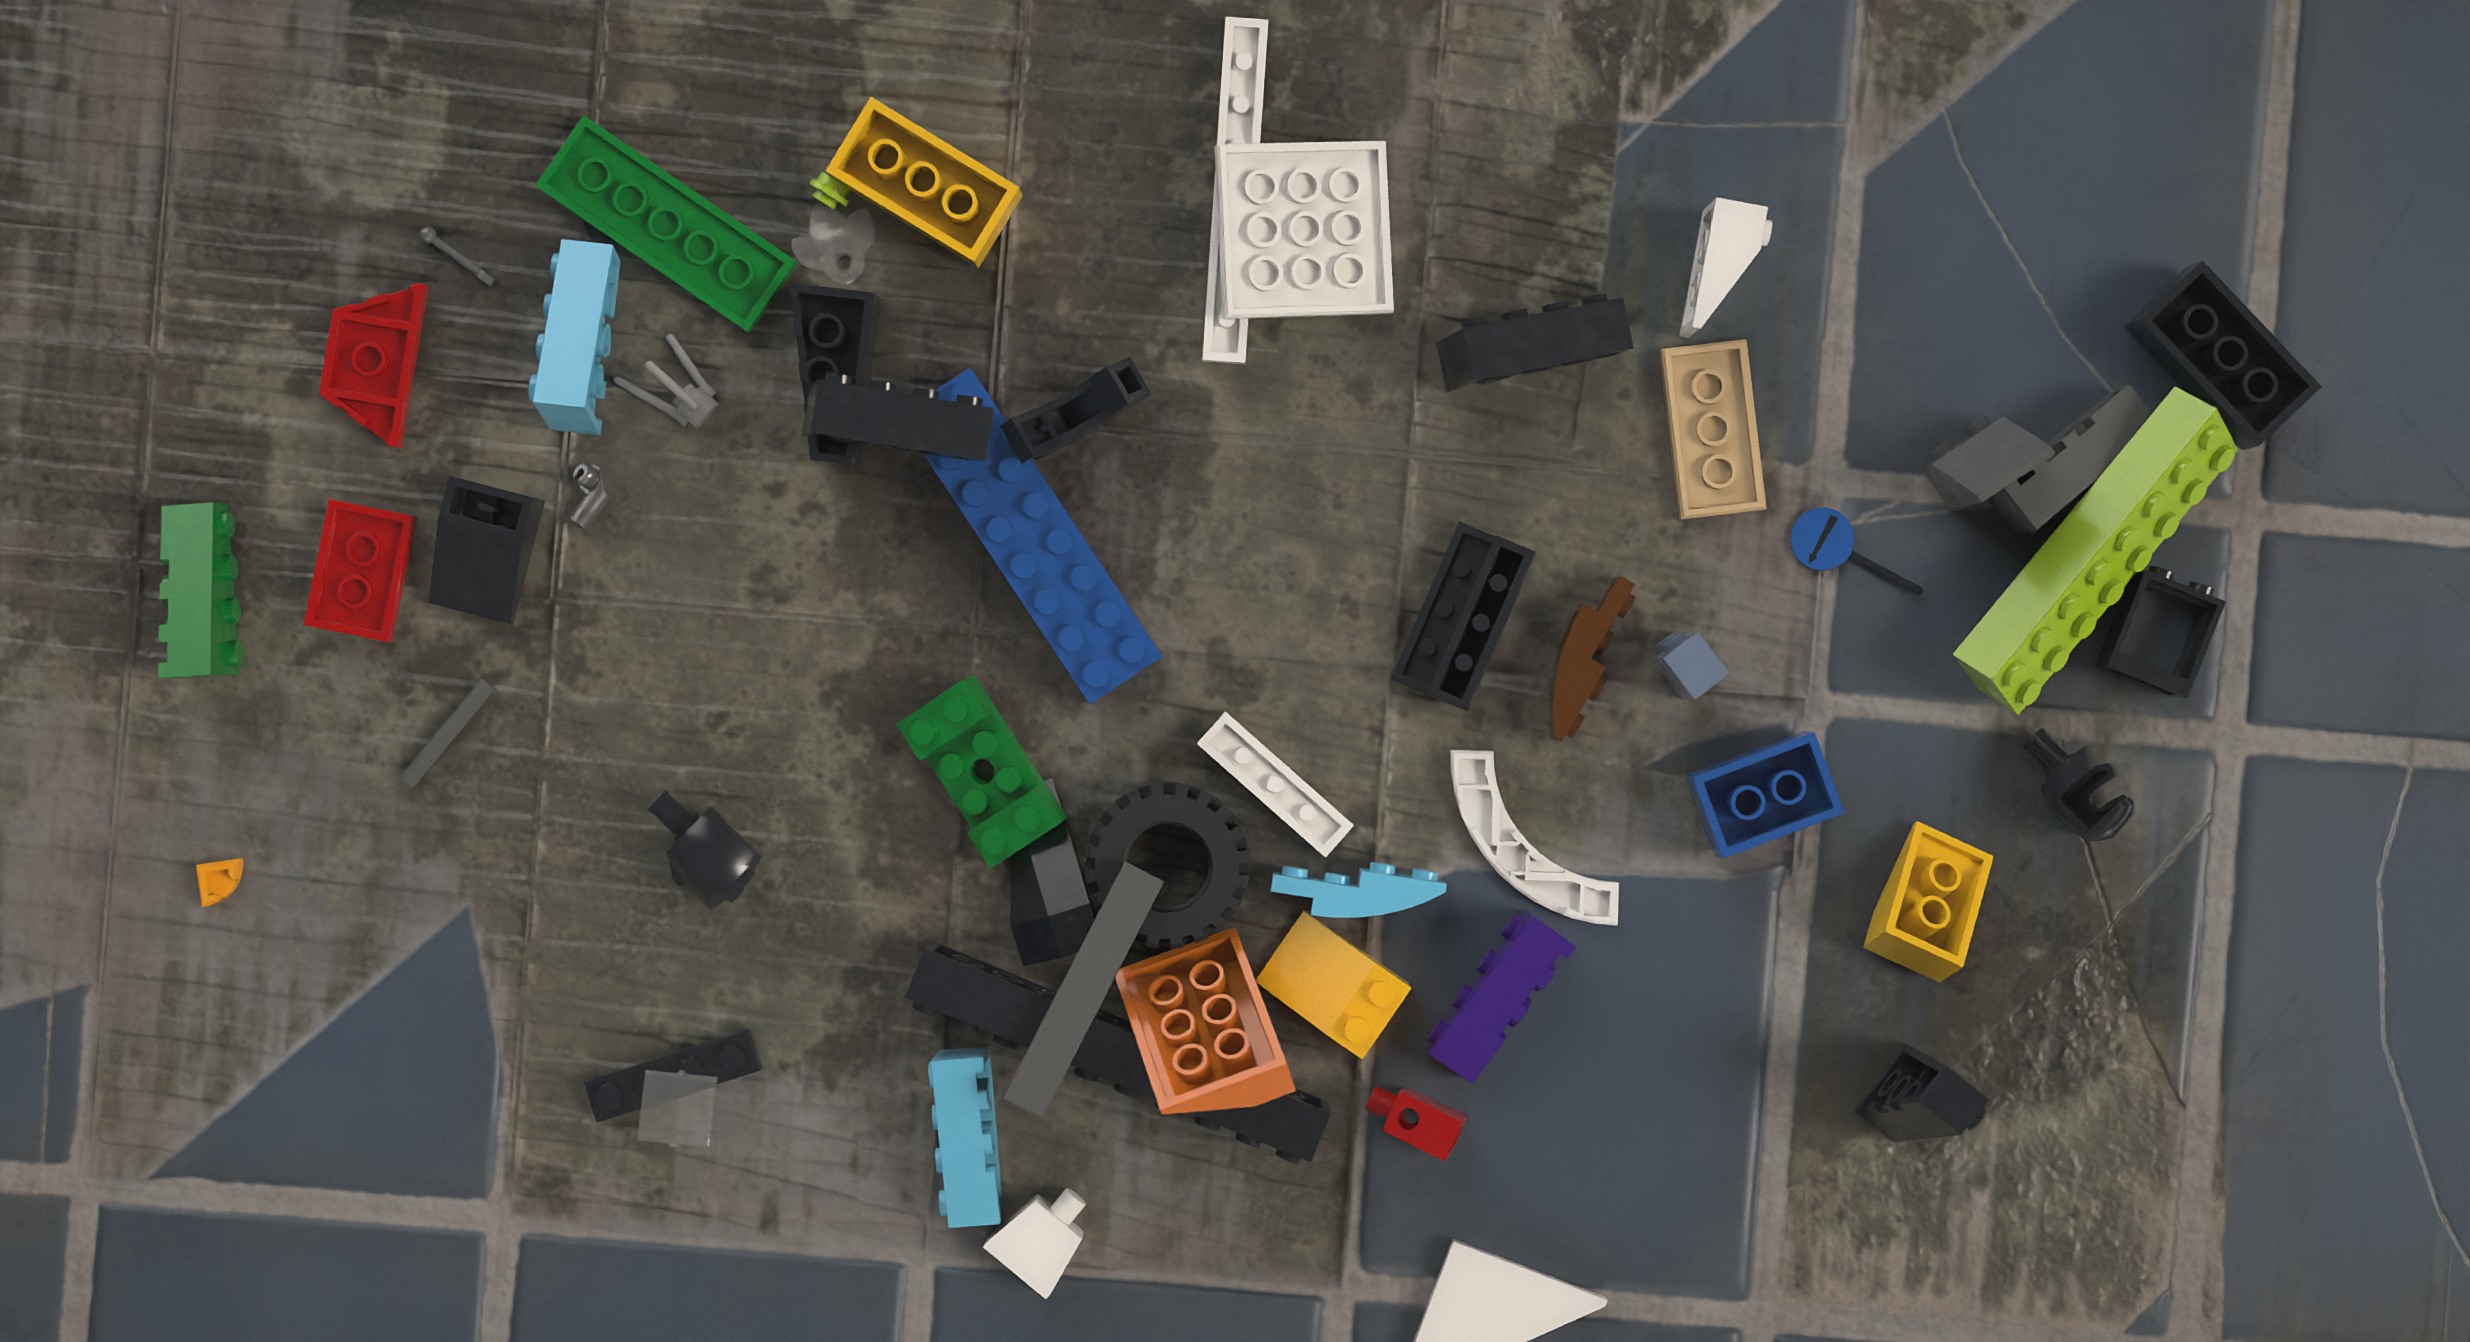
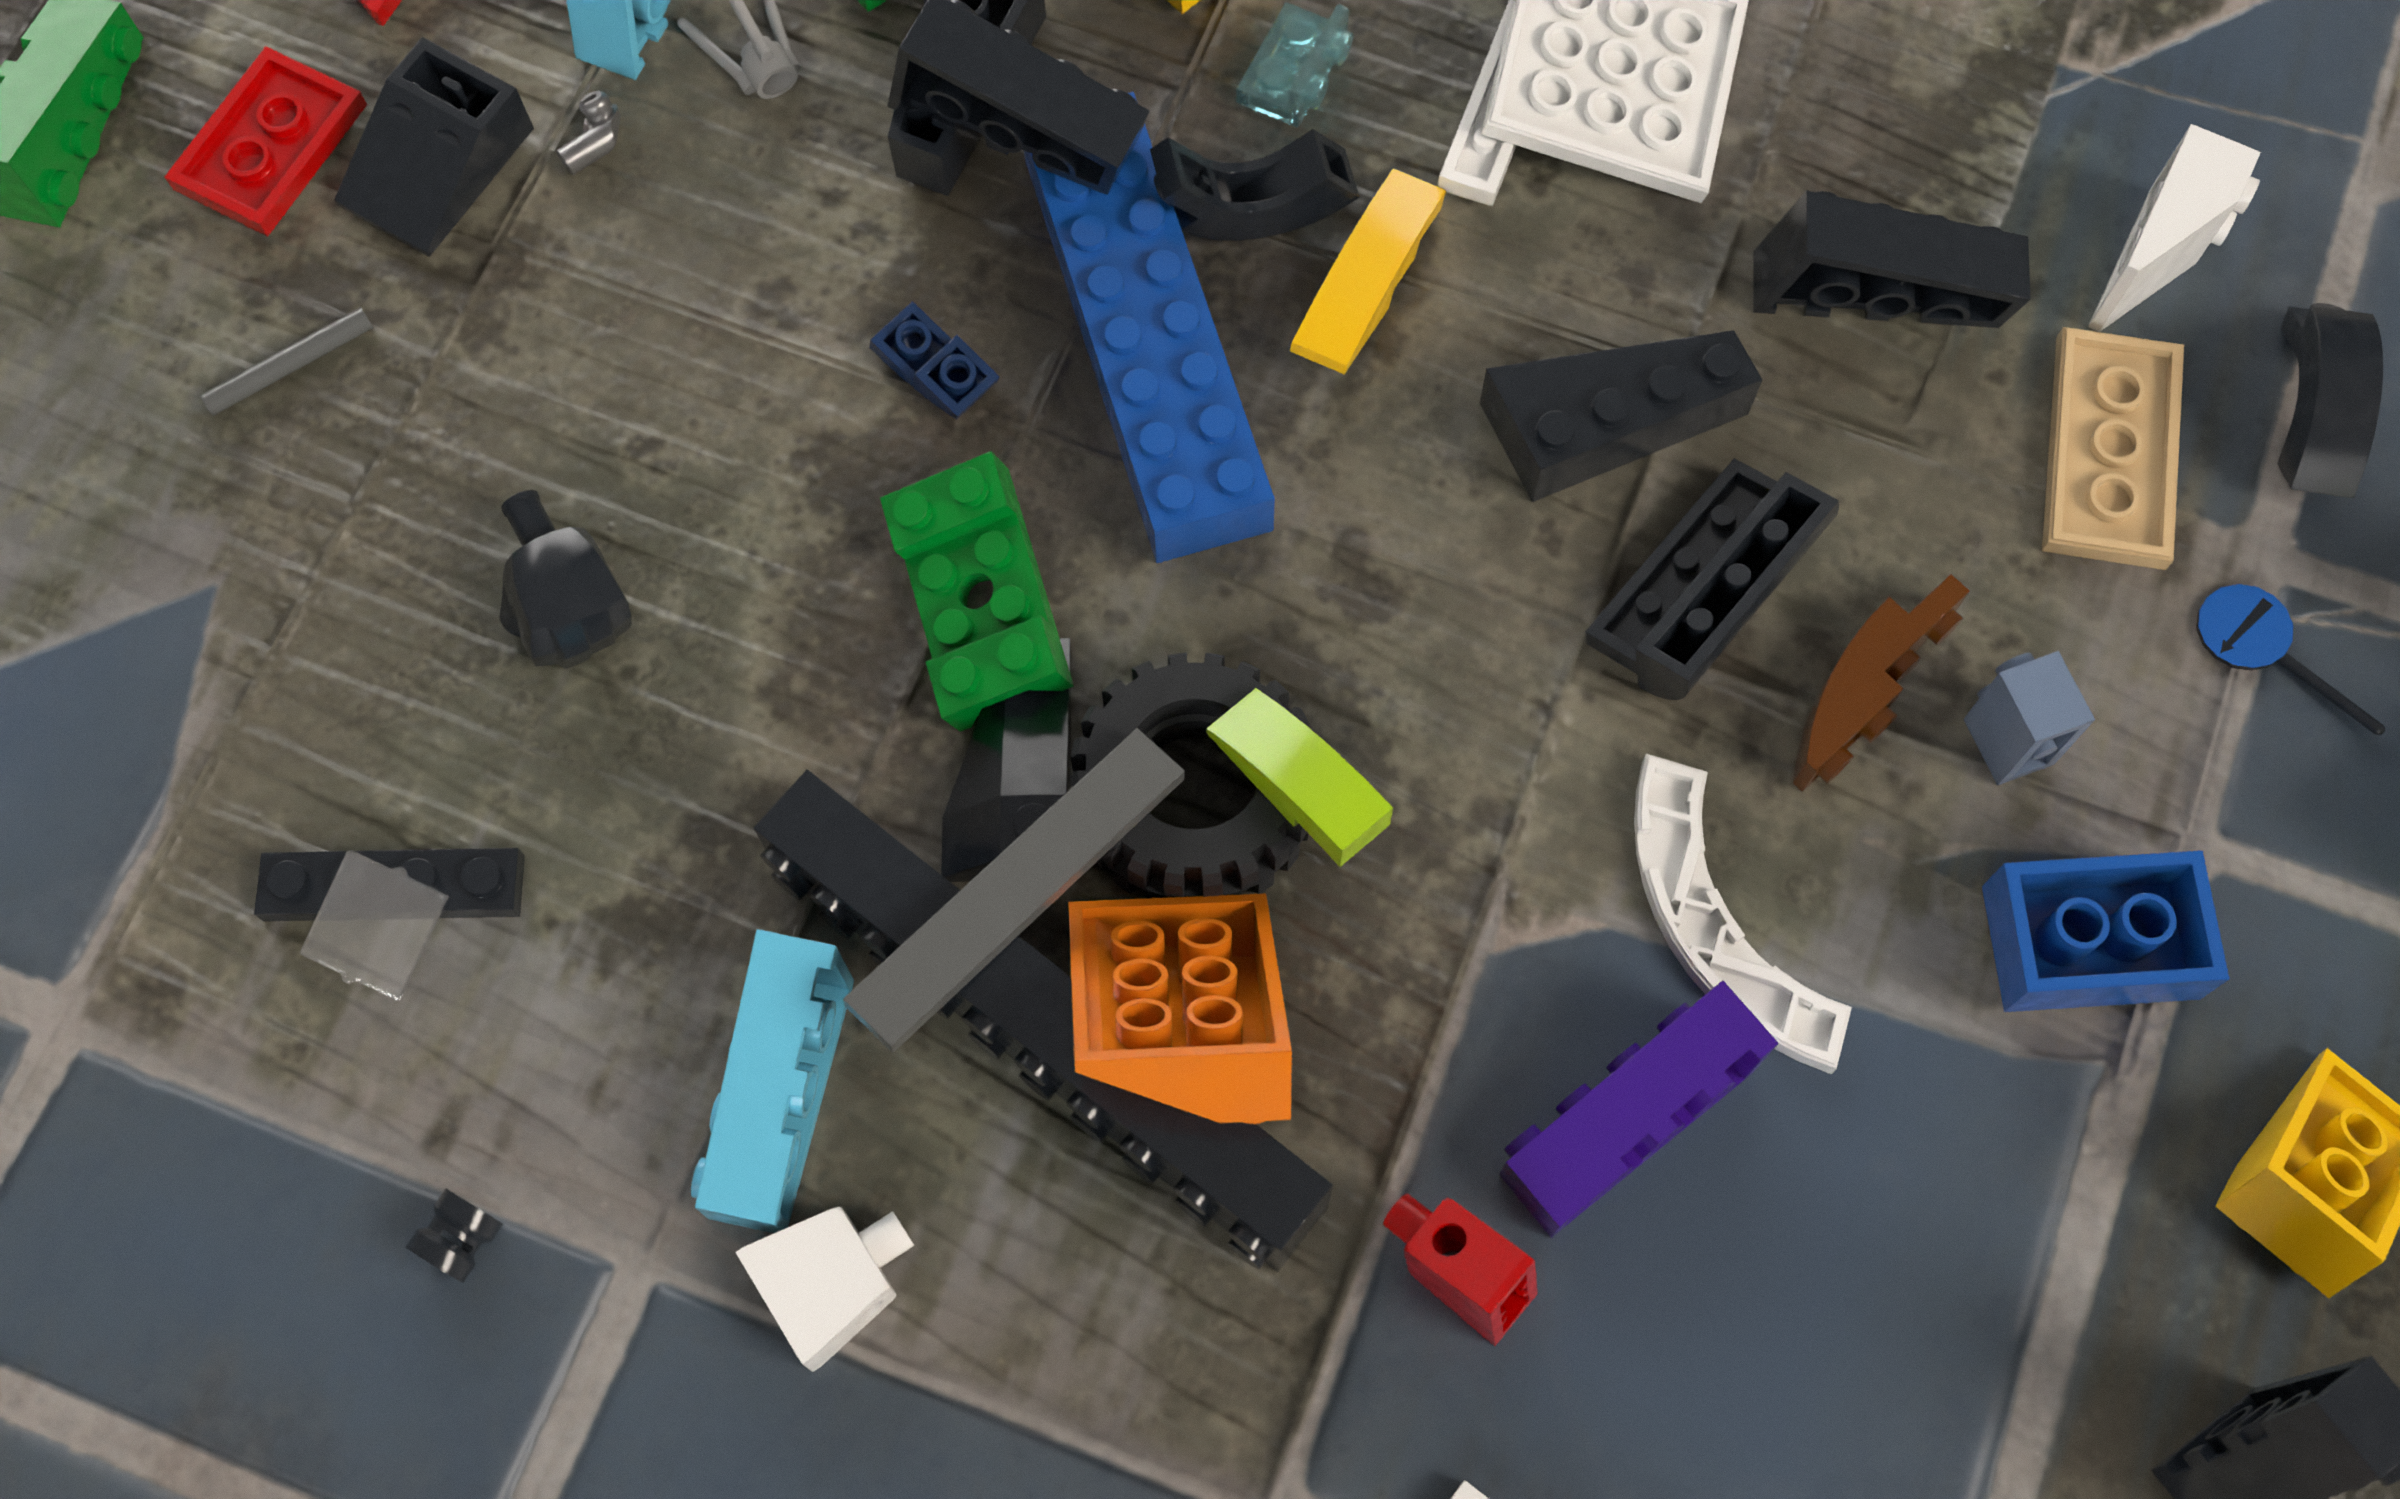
camera: 15 degrees right, 20 degrees down
(805, 1281) = (460, 1220): none -> black wheel
(894, 602) = (932, 362): none -> dark blue slope
(1072, 286) = (1295, 62): none -> clear light blue bracket
(1173, 448) = (1367, 272): none -> yellow slope
(1236, 863) = (1302, 775): none -> lime slope
(1275, 784) = (1382, 729): white plate -> none
(1333, 984) = (1389, 1031): yellow slope -> none
(1362, 512) = (1613, 406): none -> black wedge
(1376, 892) = (1484, 918): medium azure slope -> none
(1851, 358) = (2336, 398): none -> black arch

